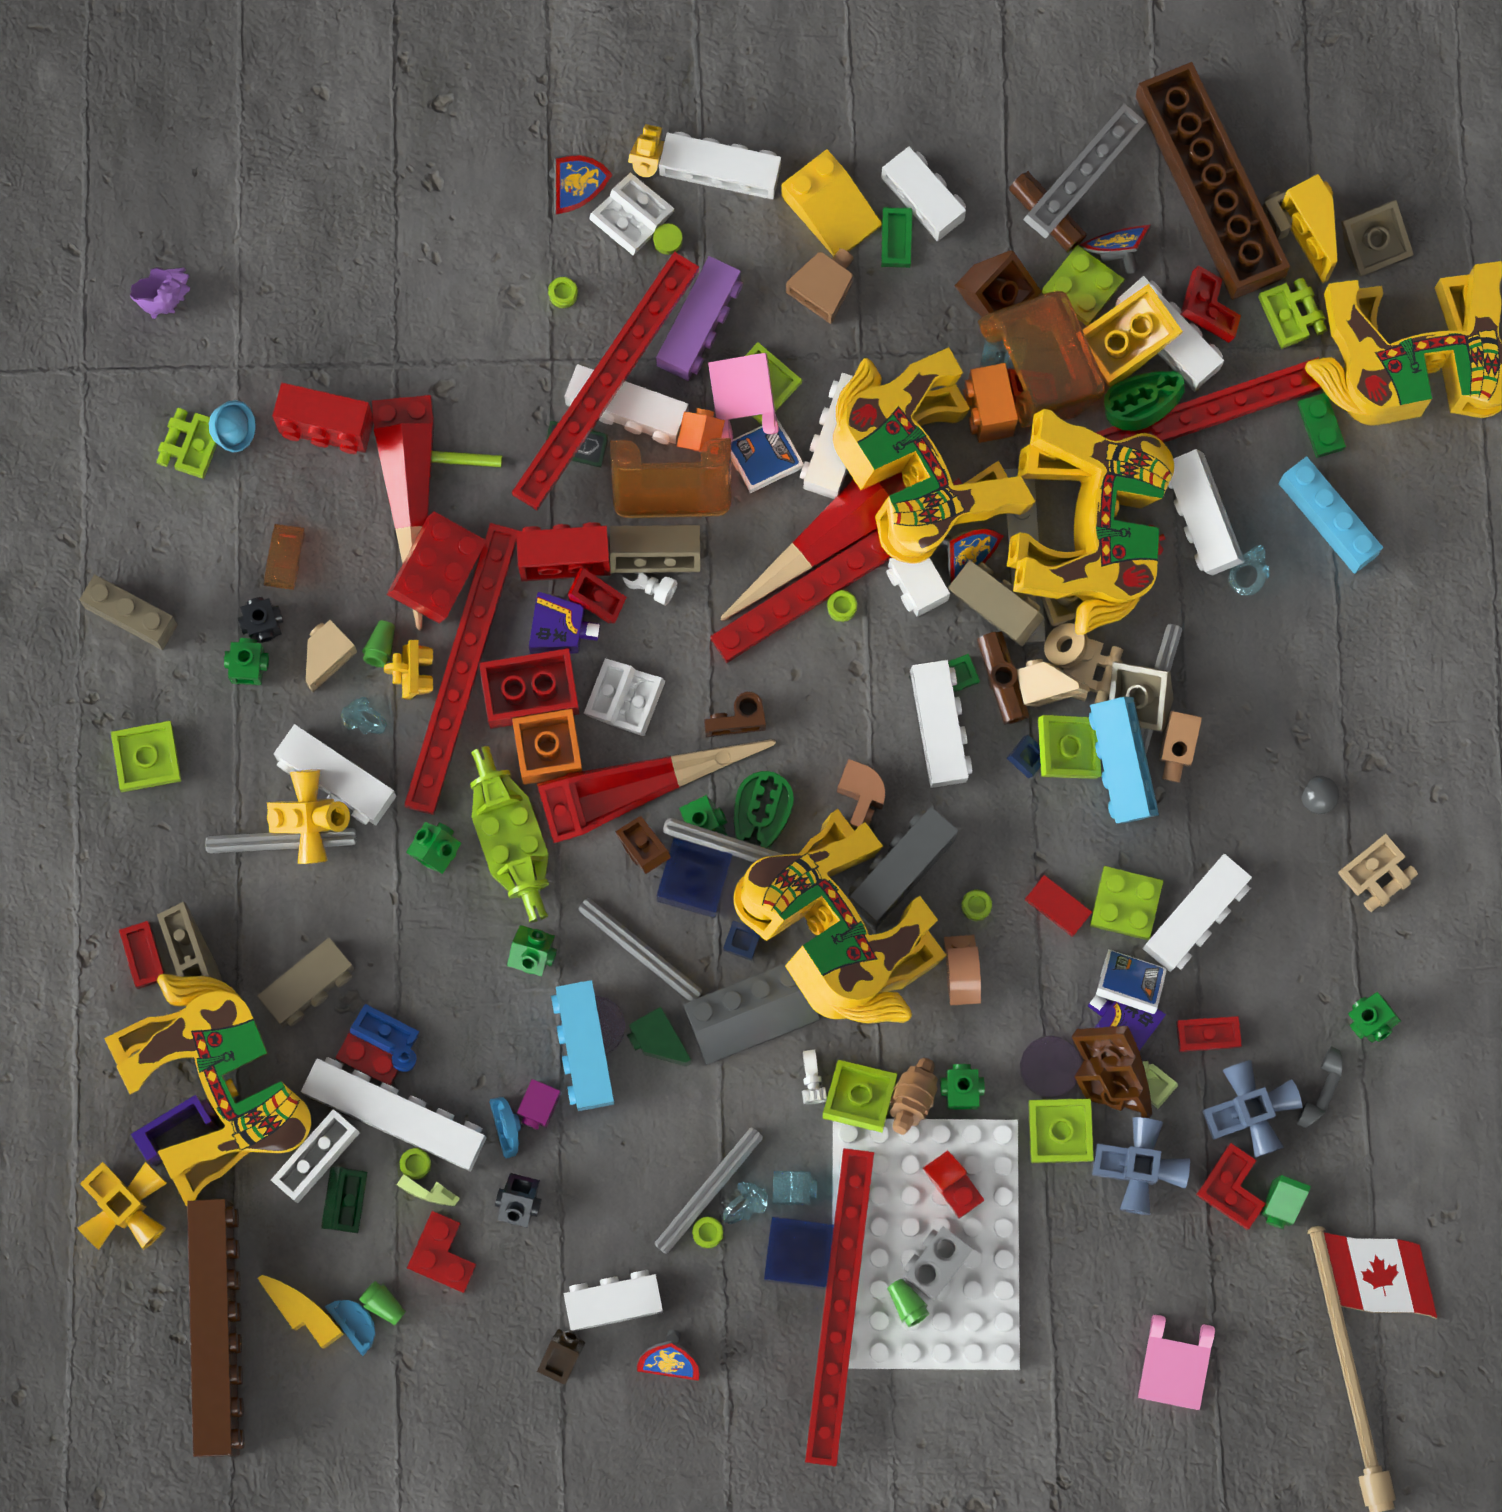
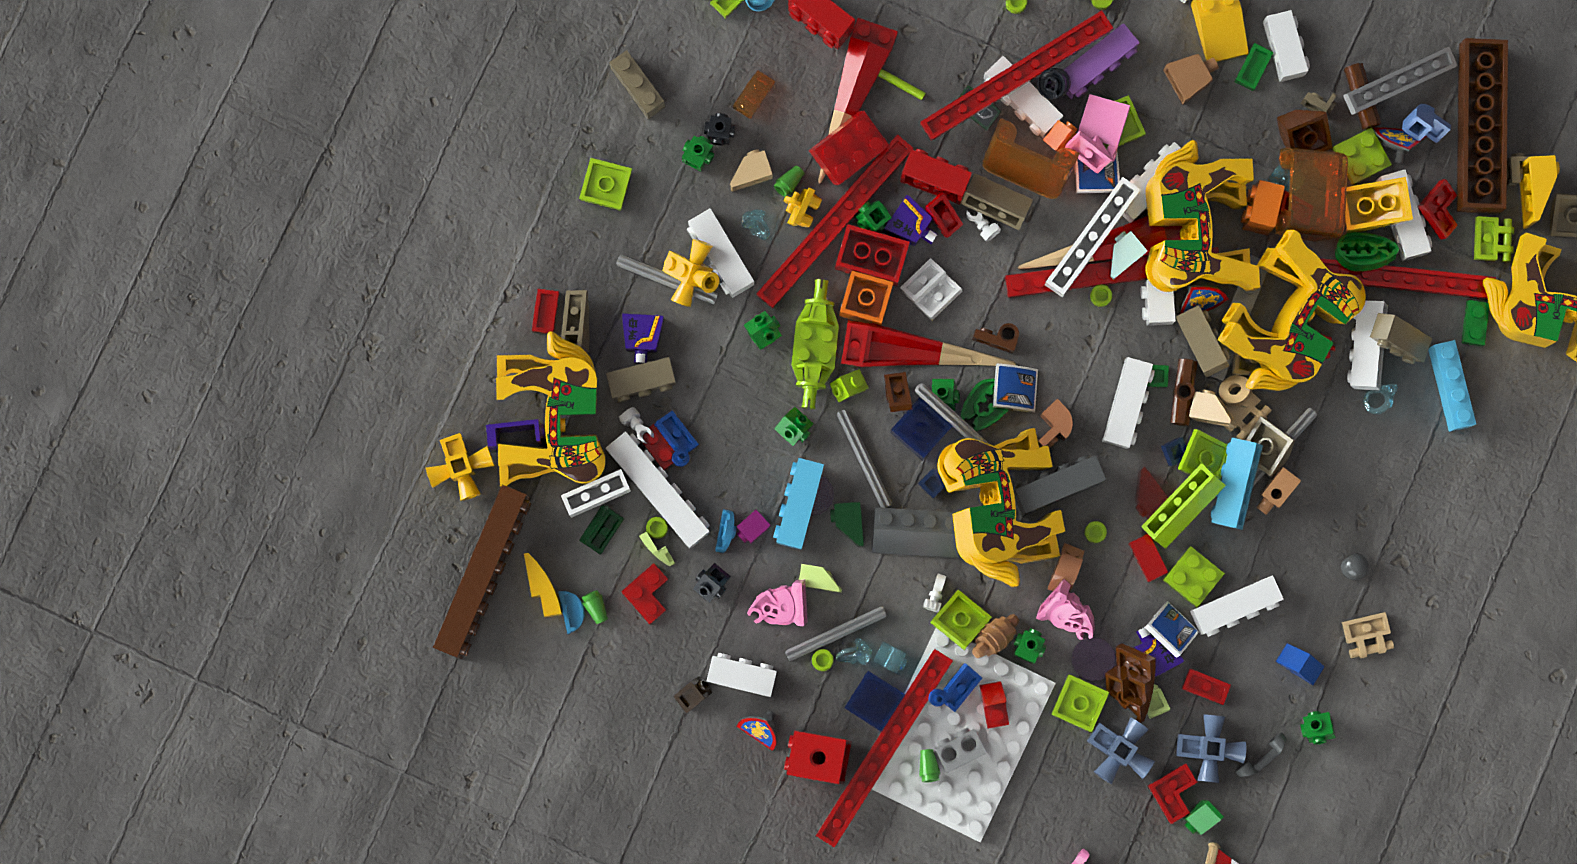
camera: 25 degrees right, 5 degrees up
(281, 925) = (642, 334): none -> dark purple torso
(318, 1039) = (632, 418): none -> white piece
(507, 639) = (878, 213): none -> green brick
(576, 866) = (848, 385): none -> lime bracket
(623, 1183) = (784, 603): none -> bright pink piece
(652, 1130) = (818, 578): none -> yellowish green slope
(668, 372) = (1061, 88): none -> black wheel
(741, 1363) = (804, 757): none -> red brick
(745, 431) = (1091, 151): none -> bright pink slope
(789, 770) = (1015, 387): none -> slope
(796, 536) = (1092, 237): none -> white brick
(847, 537) = (1125, 253): none -> light aqua slope
(896, 1187) = (957, 689): none -> blue hinge
(989, 1022) = (1067, 612): none -> bright pink piece
(992, 244) = (1315, 102): none -> dark tan bracket
(1021, 826) = (1148, 494): none -> clear red slope
(1070, 819) = (1183, 506): none -> lime brick
(1141, 208) = (1425, 122): none -> medium blue brick
(1239, 484) = (1400, 338): none -> dark tan brick
(1312, 948) = (1300, 663): none -> blue slope

